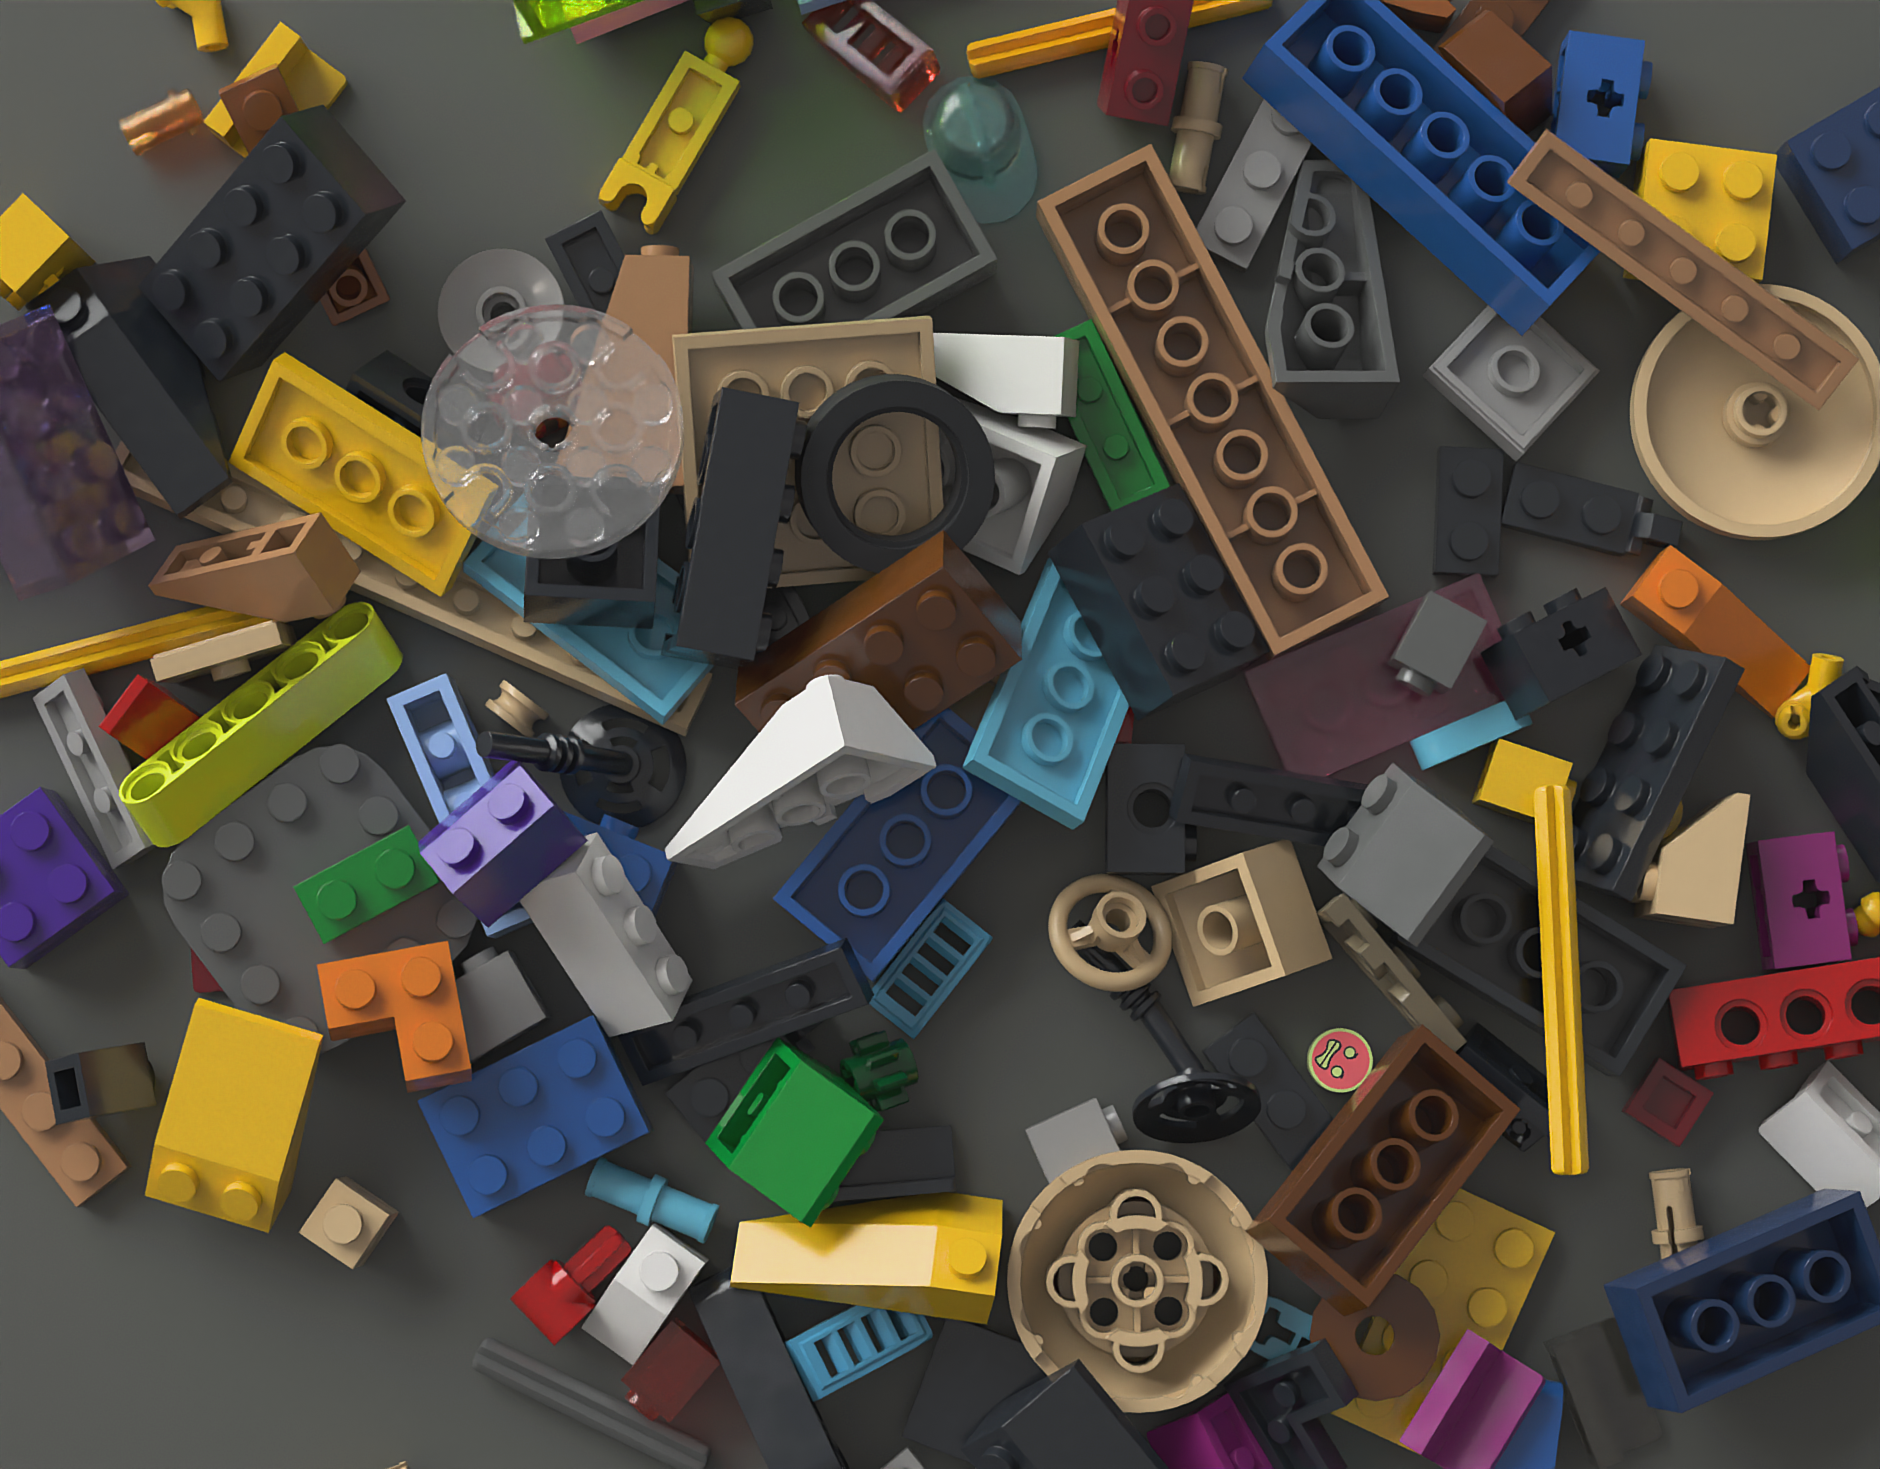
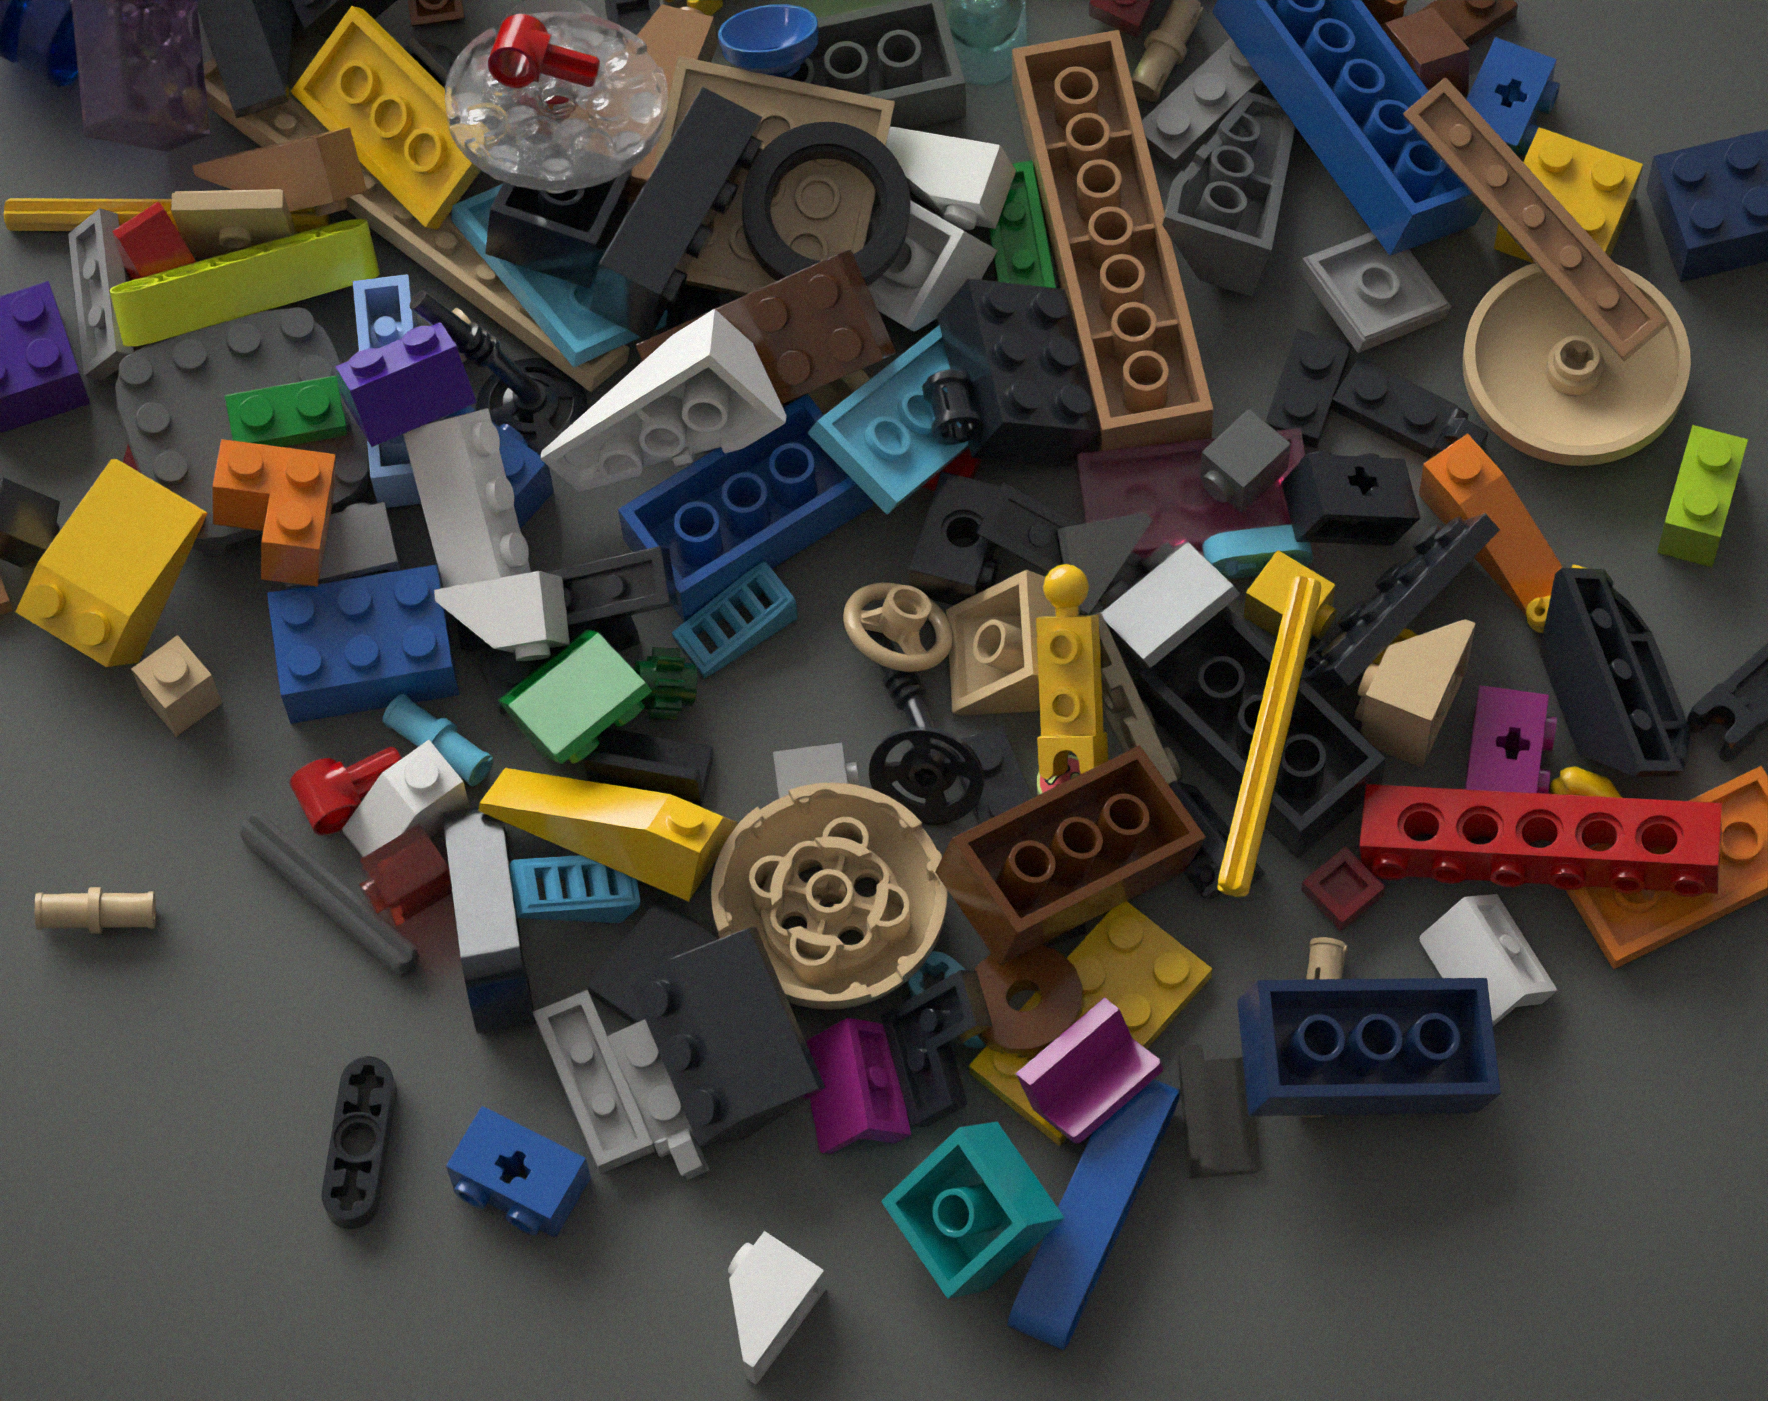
camera: 20 degrees right, 20 degrees down
(506, 395) = (526, 52): none -> red axle
(695, 1057) = (512, 612): none -> white slope
(762, 262) = (769, 39): none -> blue piece
(1105, 679) = (952, 407): none -> black bush
(1317, 811) = (1101, 550): none -> dark grey slope
(1328, 972) = (1069, 677): none -> yellow plate

